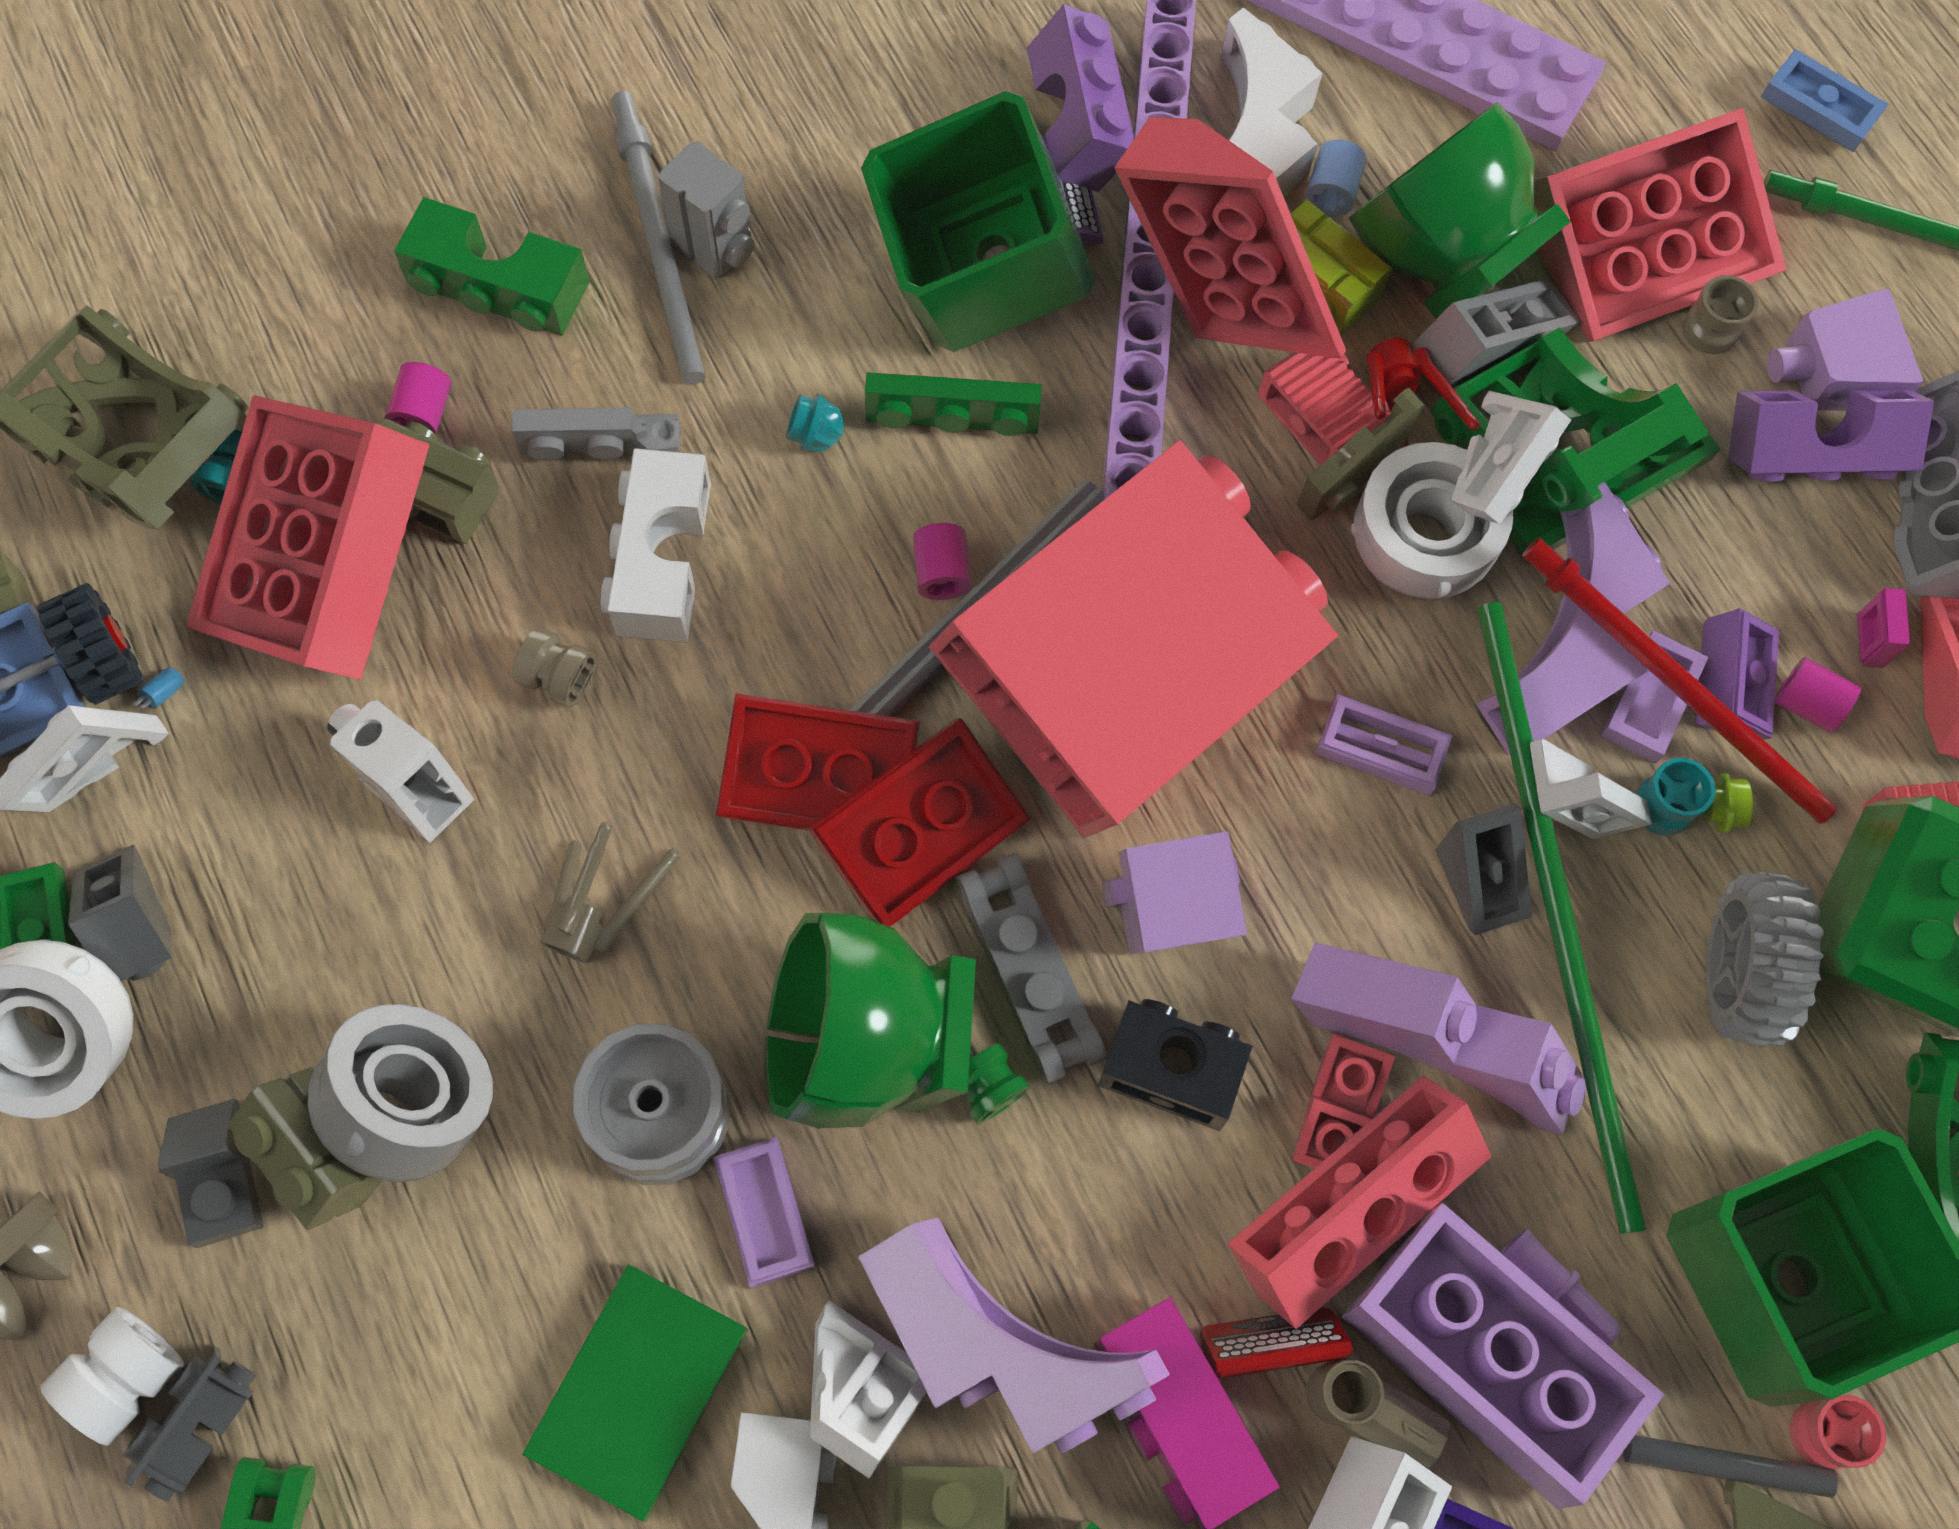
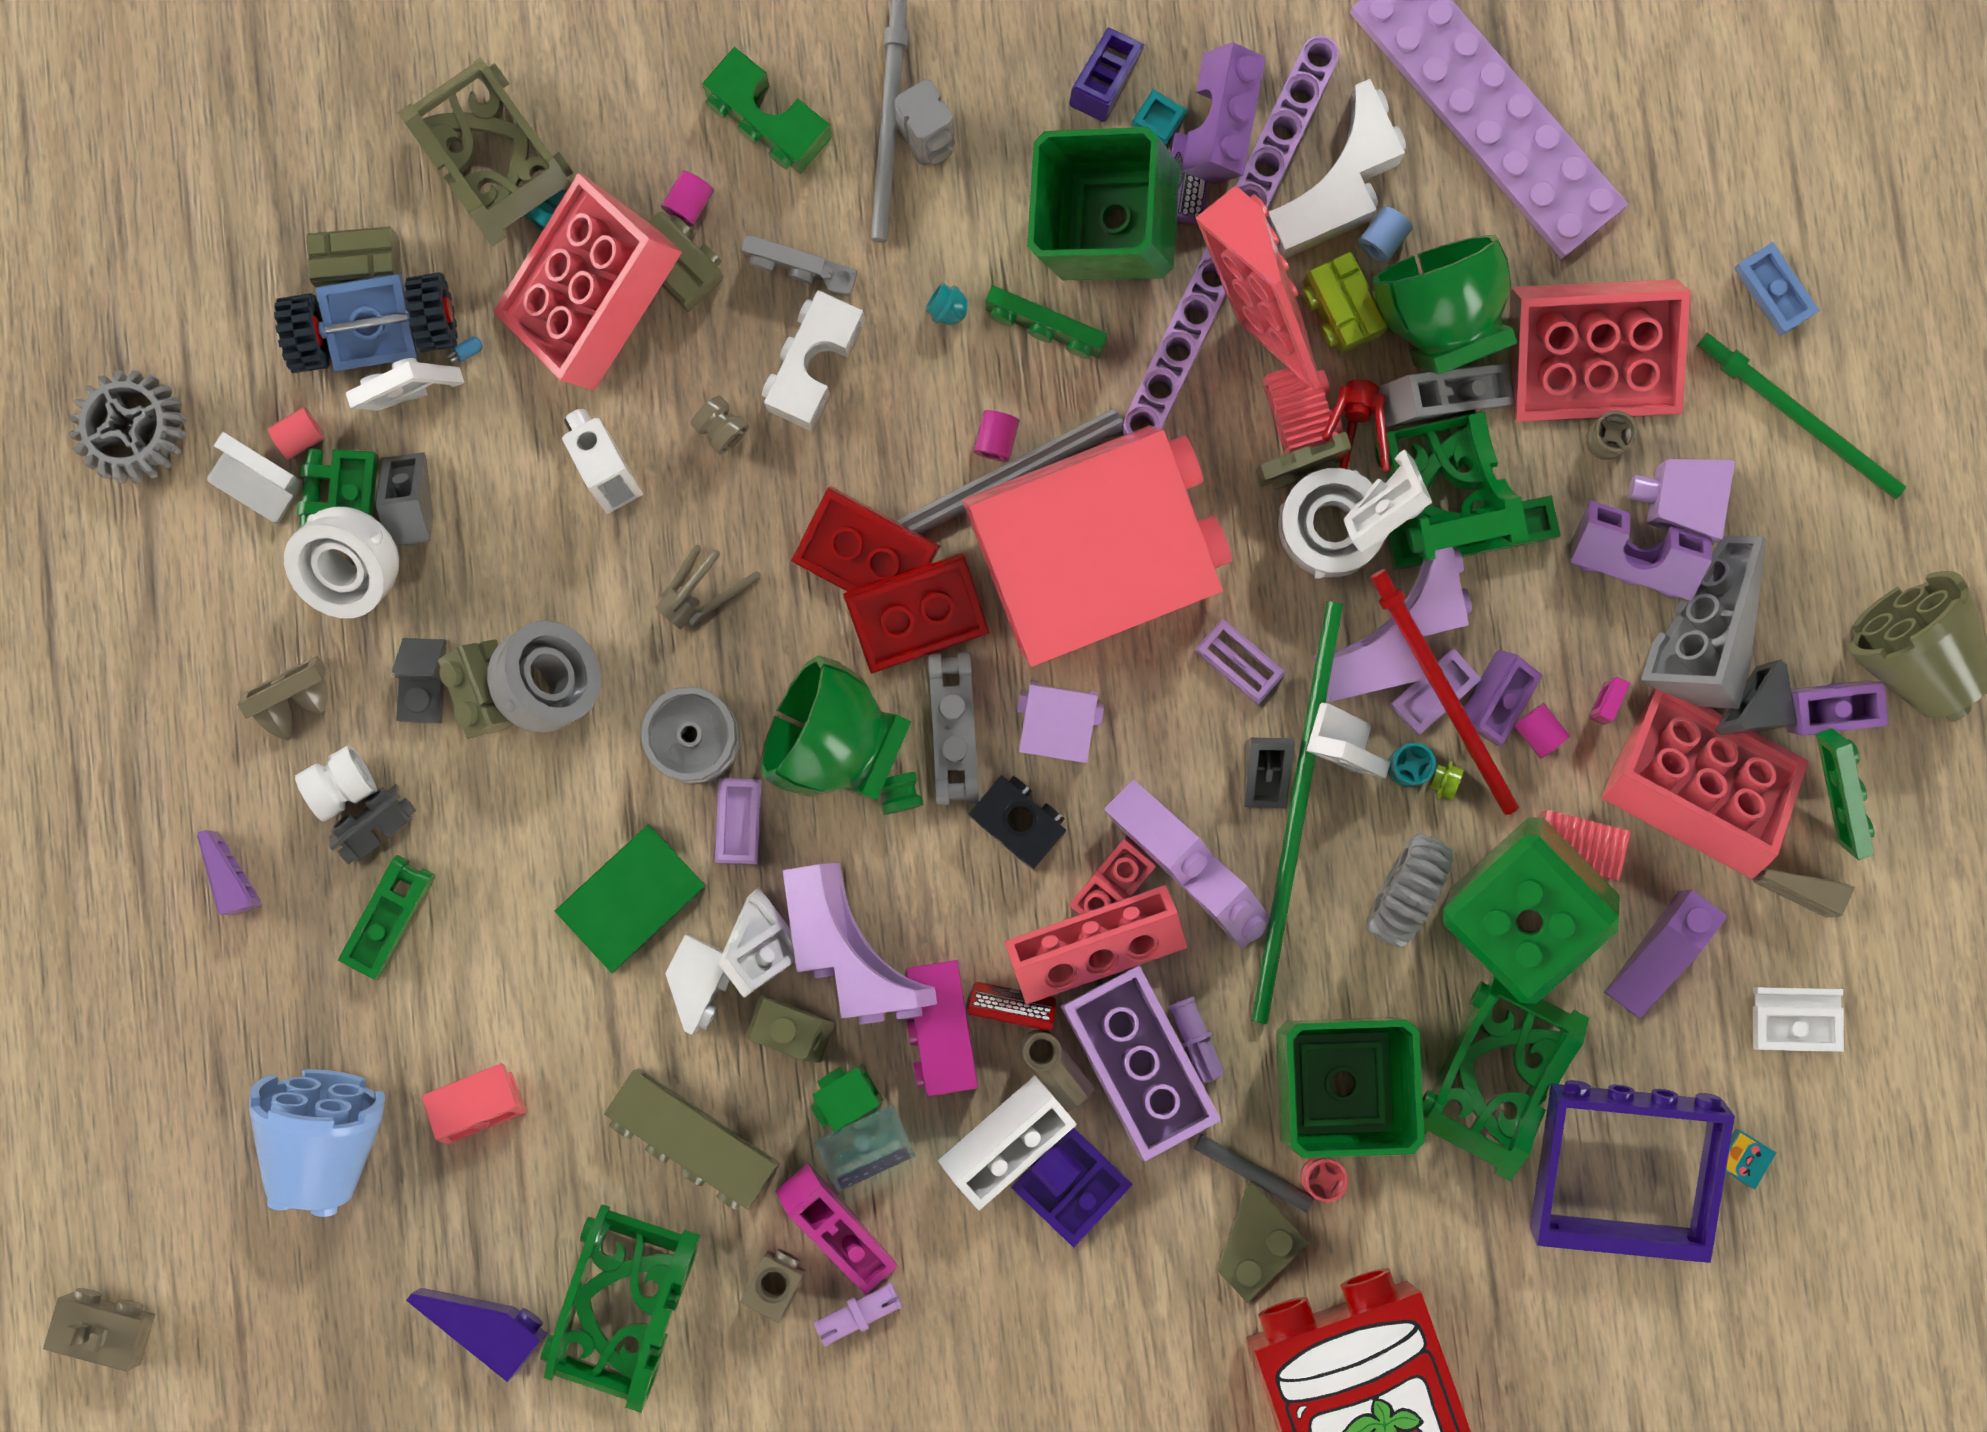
camera: 25 degrees right, 15 degrees up
(913, 106) = (1093, 97): none -> dark purple slope

